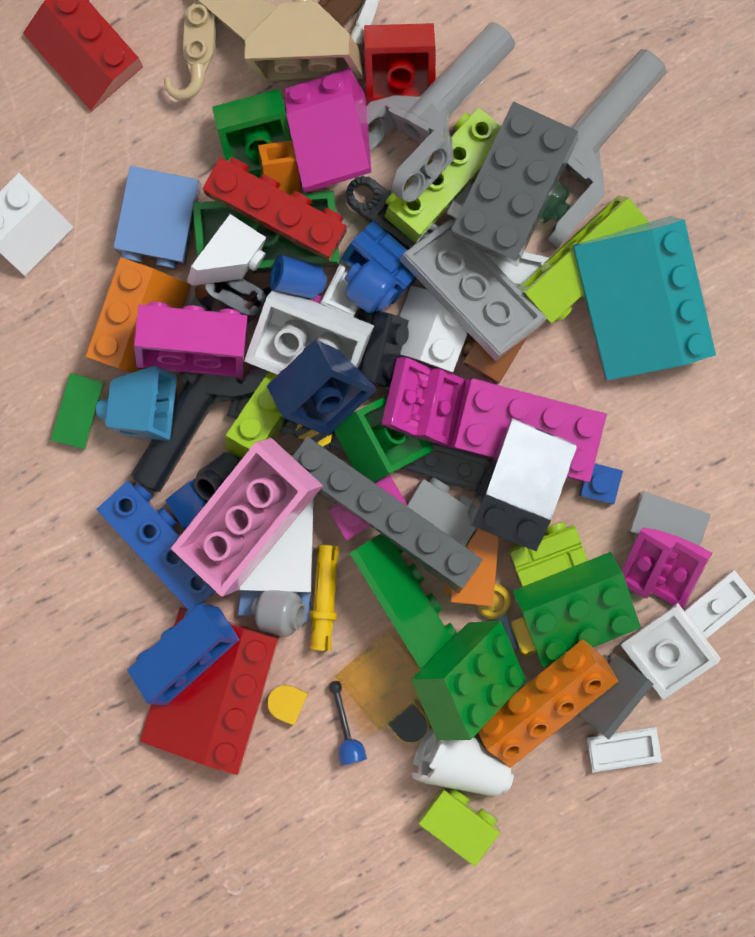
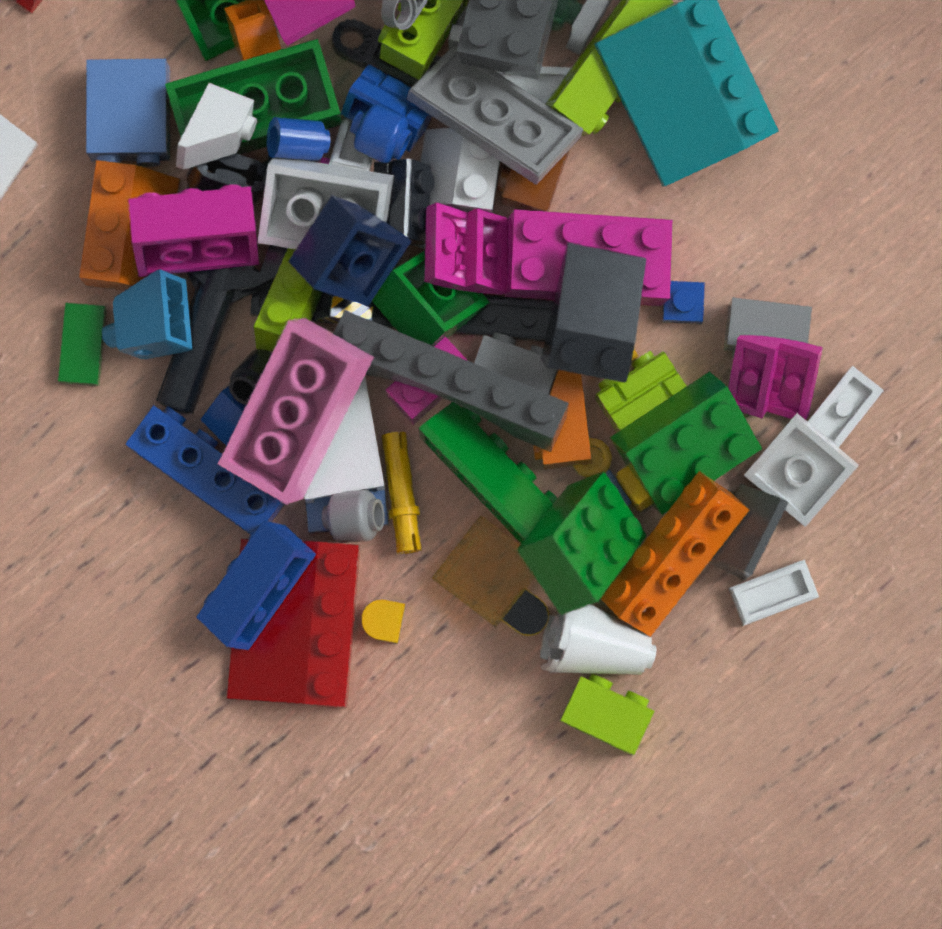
camera: 15 degrees left, 5 degrees down
(274, 209) = (257, 68): red brick -> none
(350, 749) = (466, 657): hinge -> none

